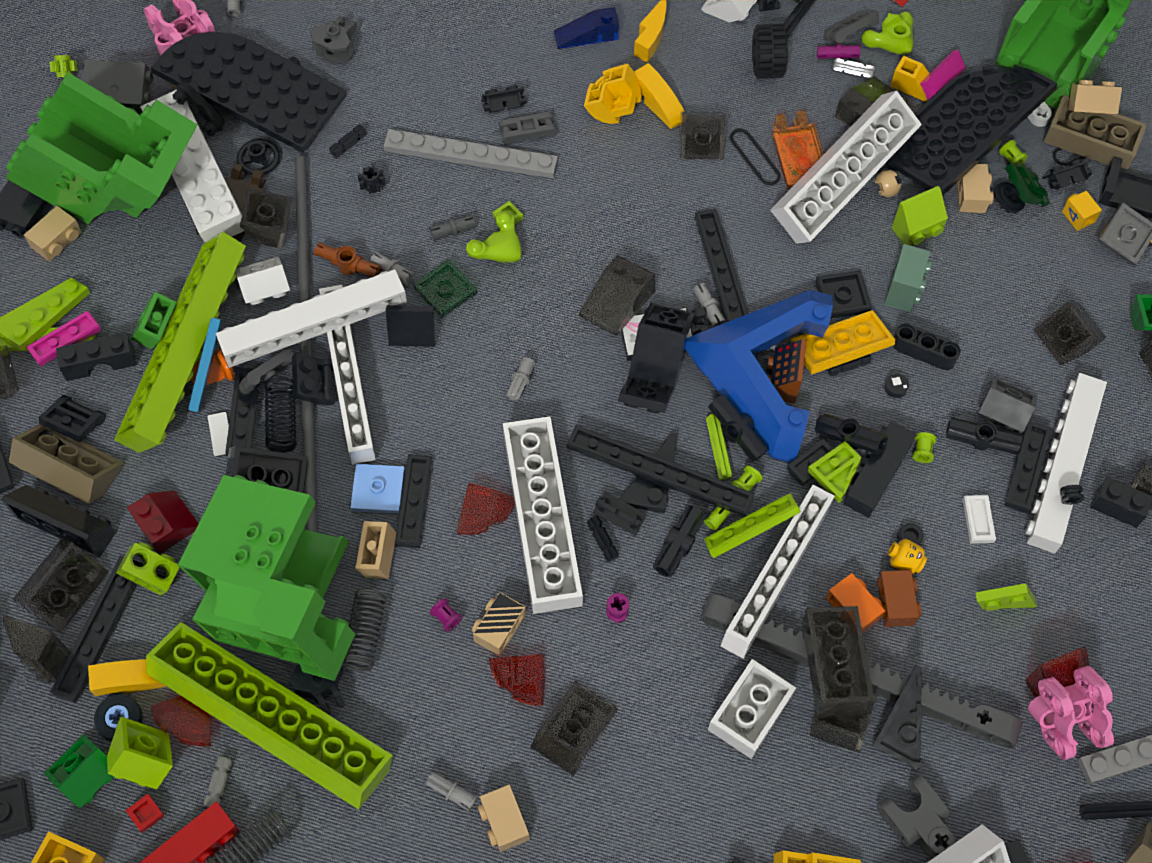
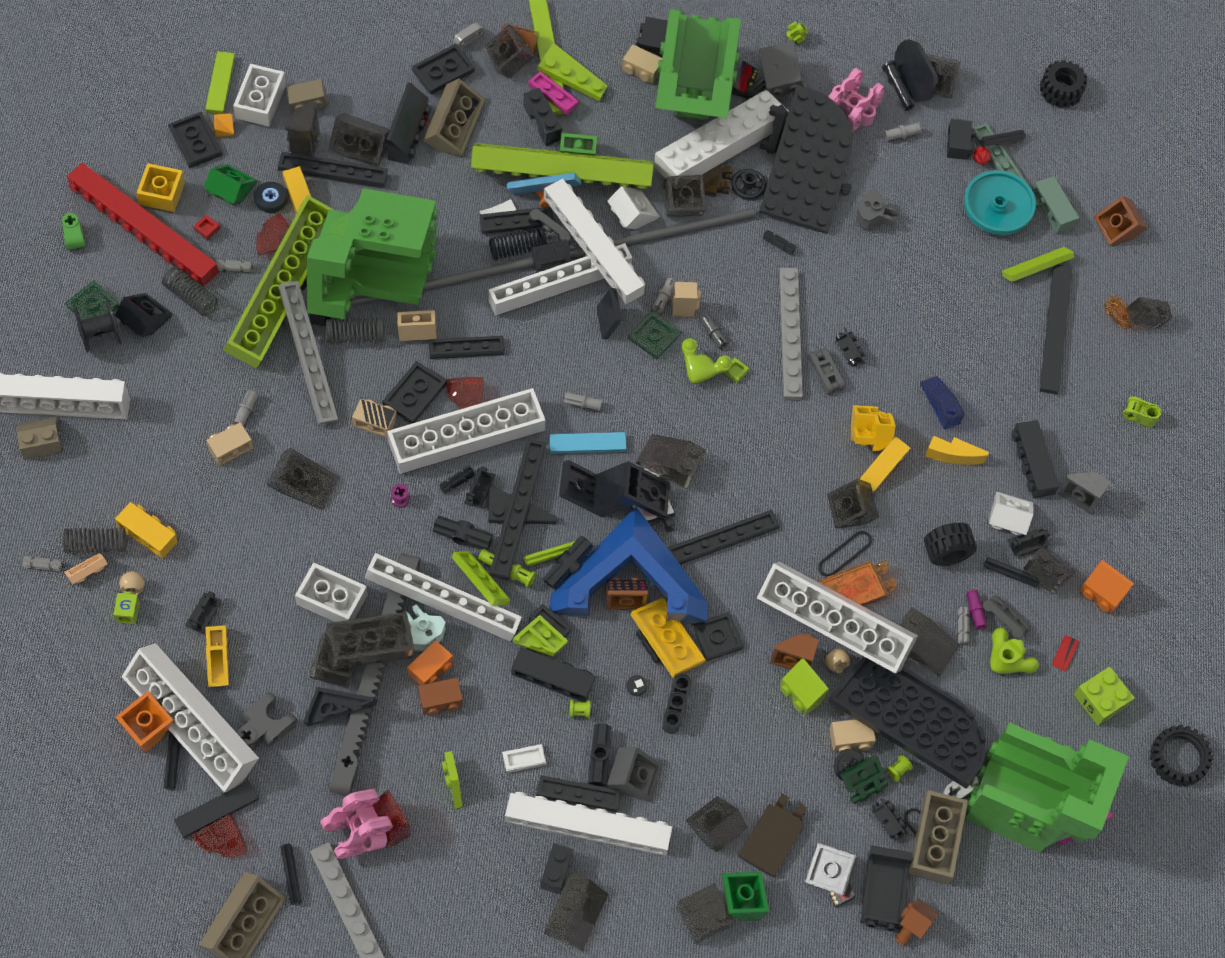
camera: 75 degrees right, 0 degrees up
(68, 423) = (484, 111): black plate -> none
(139, 754) = (244, 211): lime slope -> none
(145, 575) = (373, 184): lime brick -> none
(163, 519) = (421, 183): dark red slope -> none
(272, 467) = (464, 243): black slope -> none
(355, 264) = (662, 269): dark orange pin -> none
(371, 179) = (743, 264): black gear -> none
(377, 488) = (471, 320): light blue plate -> none
(388, 691) = (308, 353): none -> light grey plate
(409, 242) = (685, 299): none -> tan brick
(446, 614) = (376, 382): magenta bush -> none
(469, 570) = (415, 392): none -> black plate
(521, 677) = (338, 441): clear red brick -> none
(576, 384) = (587, 443): none -> medium azure tile
(709, 304) = (681, 530): light grey pin -> none
(808, 594) = (425, 629): none -> light aqua hinge
(852, 433) = (575, 647): black piece -> none
(880, 214) = (791, 651): none -> dark orange slope
(907, 556) = (477, 700): yellow head -> none
(908, 78) = (958, 674): yellow slope -> none
(908, 278) = (737, 679): sand green brick -> none
(911, 532) = (499, 705): black tile -> none
(946, 71) = (973, 700): dark pink tile -> none
(1071, 494) = (548, 817): black bush -> none
(1081, 210) = (850, 830): yellow brick -> none
(1082, 282) = (773, 837): none -> dark brown tile
(1095, 98) = (960, 819): tan brick -> none

